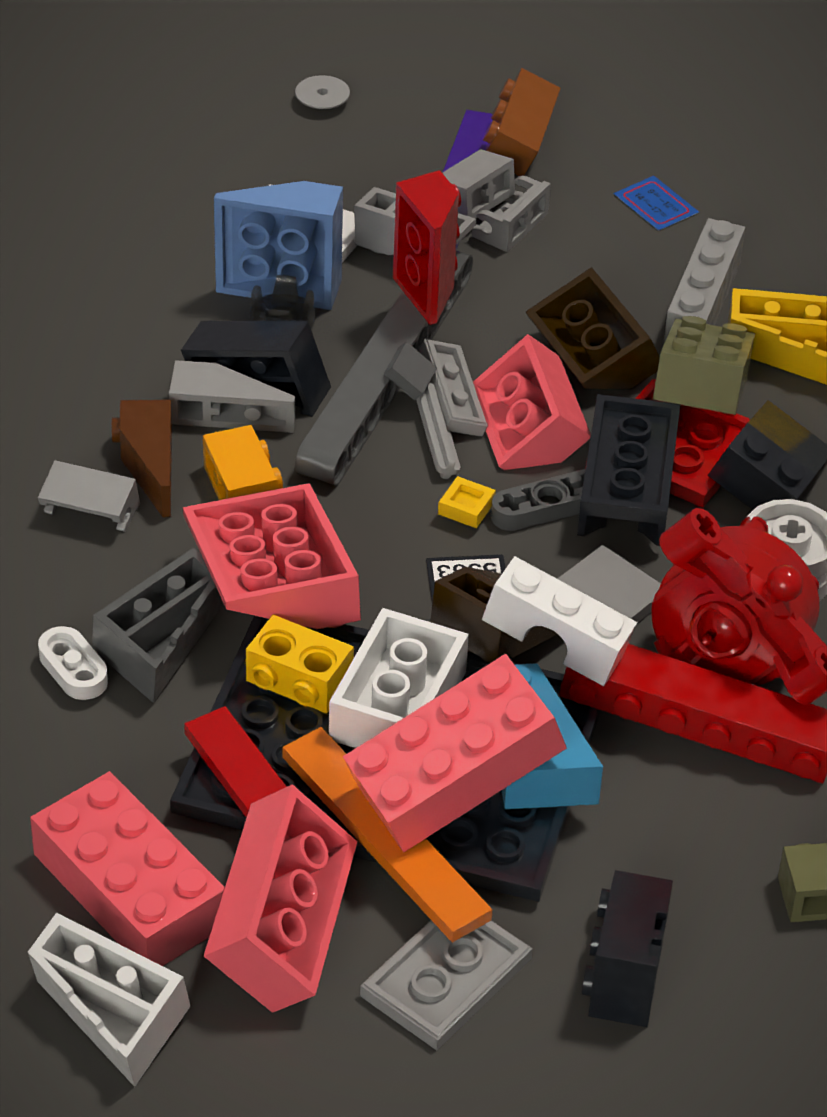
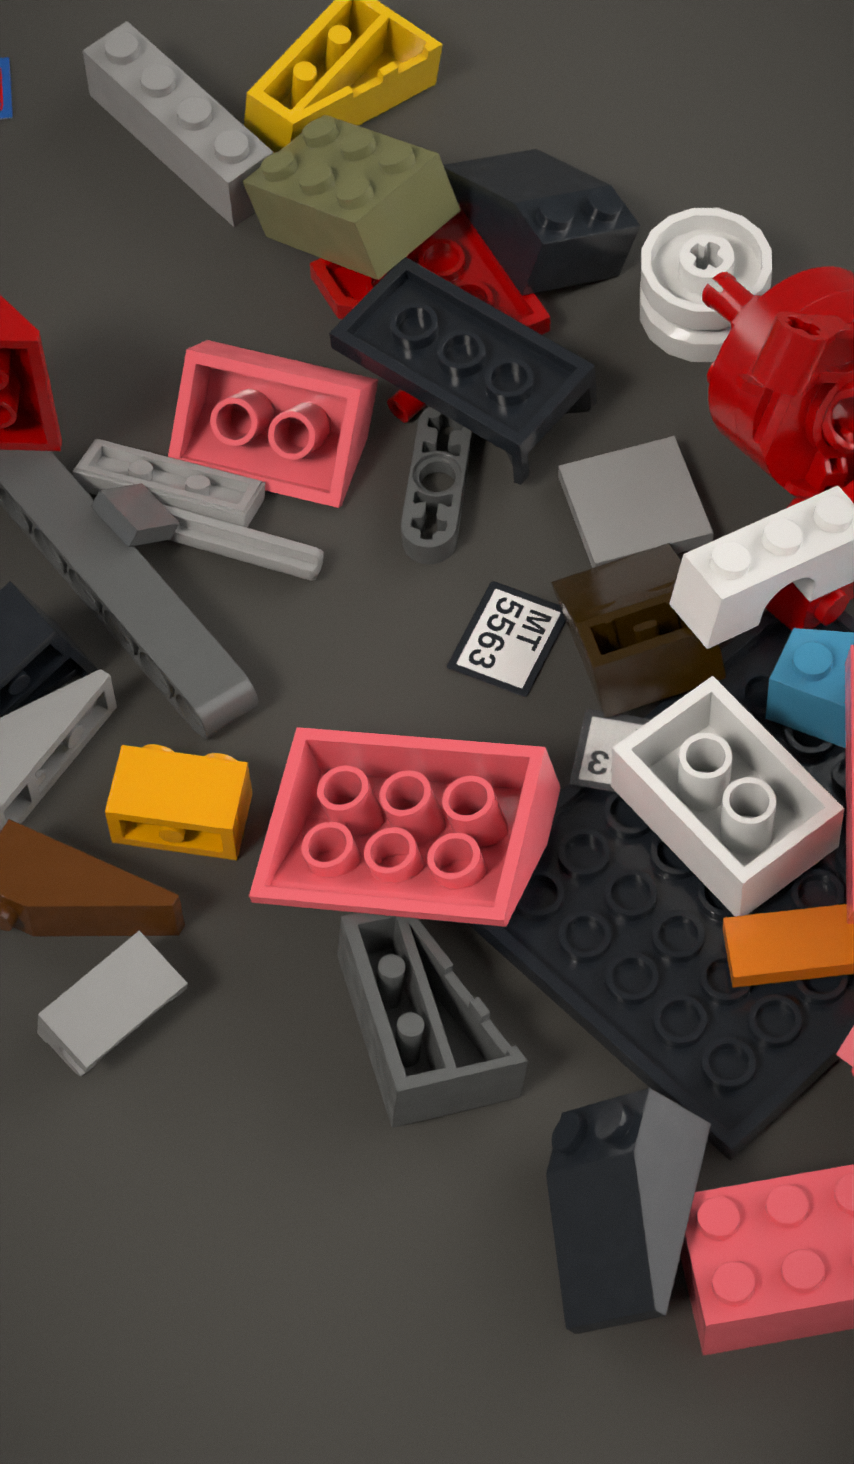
camera: 55 degrees left, 15 degrees up
(79, 668) = (409, 1158): white plate -> none
(110, 742) = (622, 1205): none -> black slope
(233, 757) = (729, 1042): red tile -> none
(297, 662) = (596, 880): yellow brick -> none
(466, 502) = (393, 572): yellow plate -> none
(595, 334) = (196, 280): dark brown slope -> none

